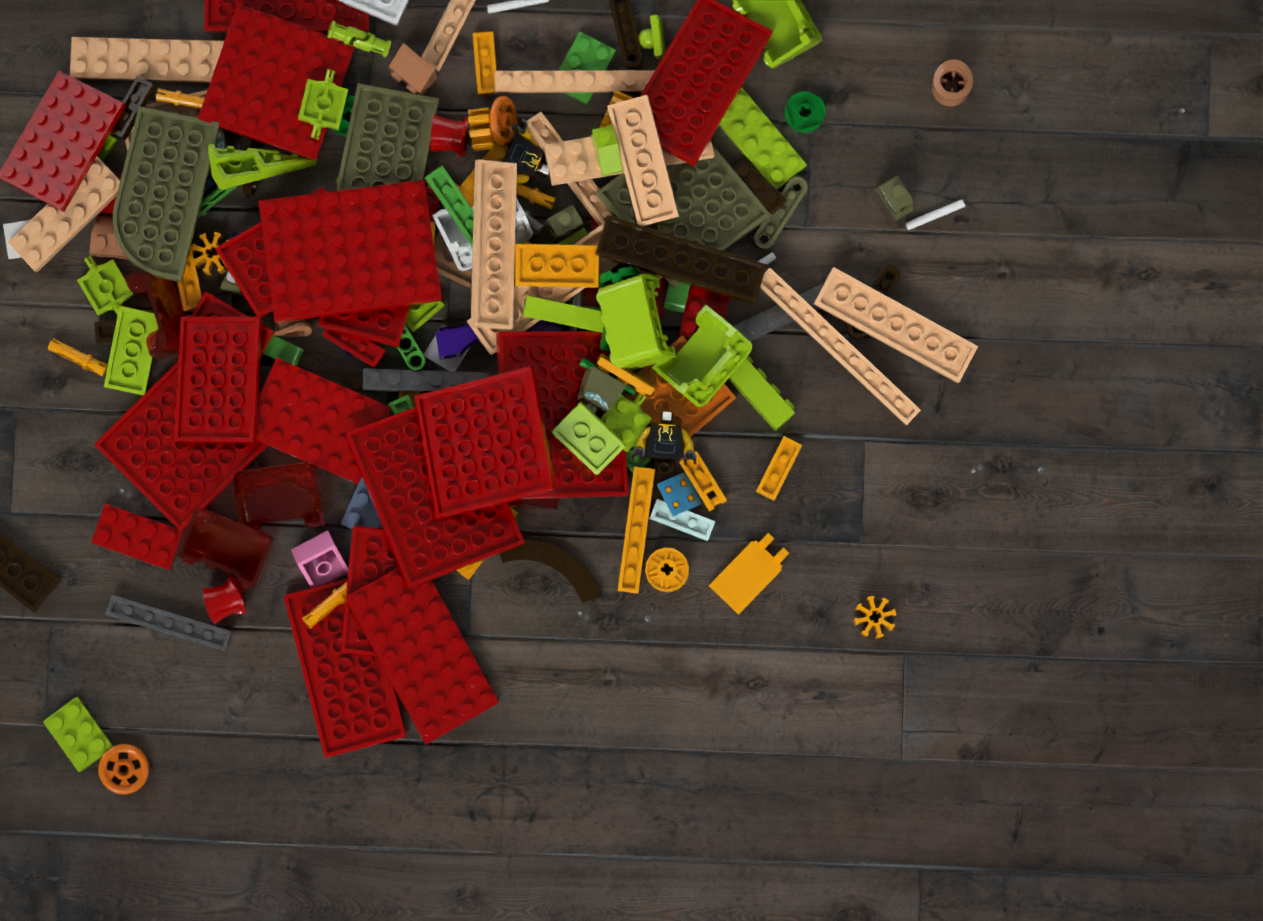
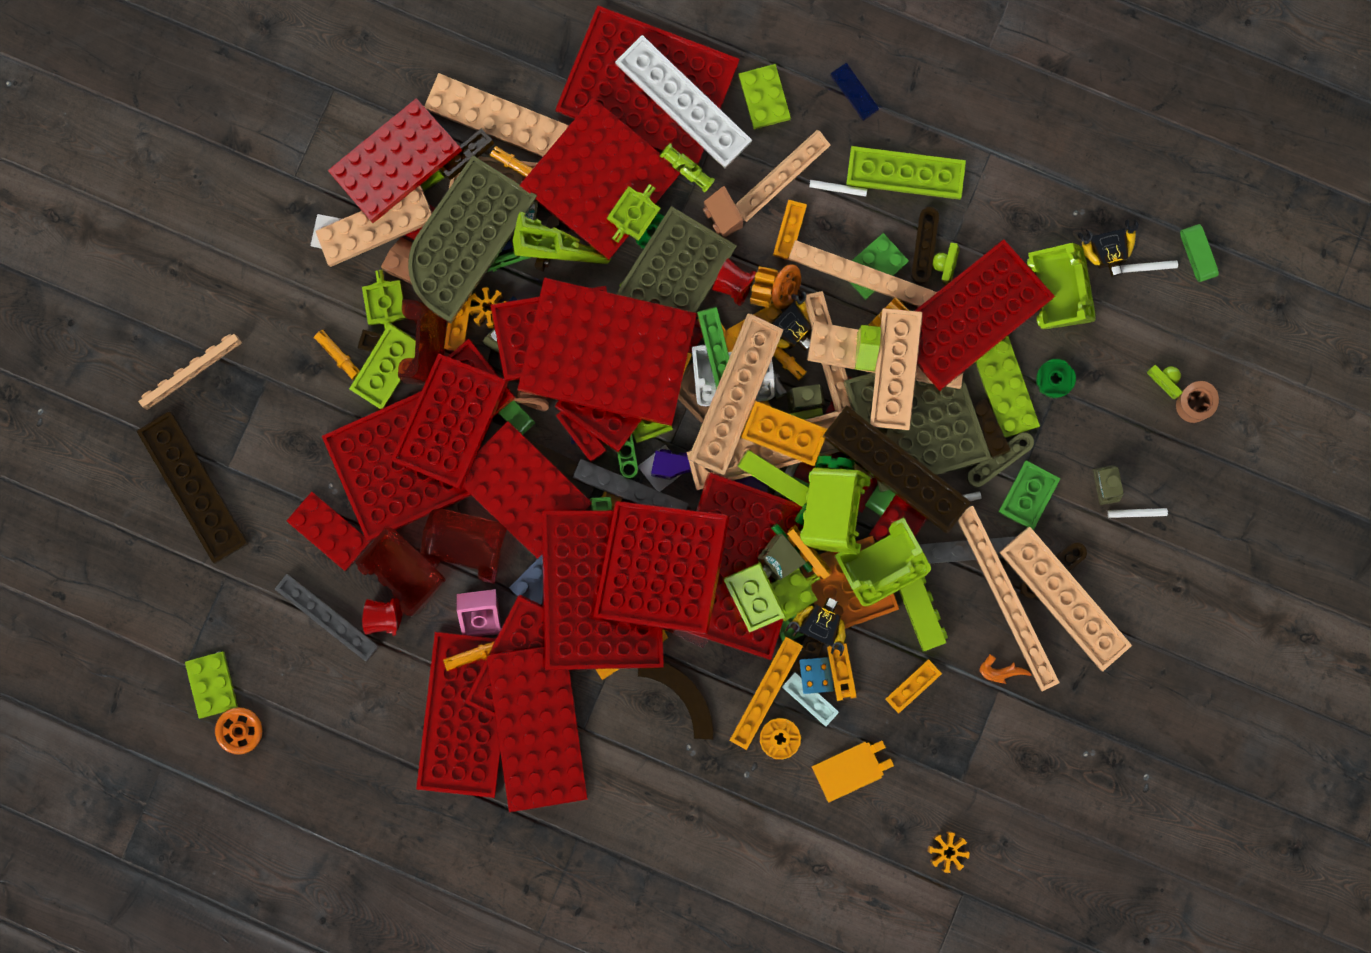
camera: 30 degrees right, 0 degrees up
(821, 237) = (1029, 495): none -> bright green plate
(860, 424) = (1000, 675): none -> orange piece
(914, 72) = (1167, 379): none -> lime tile

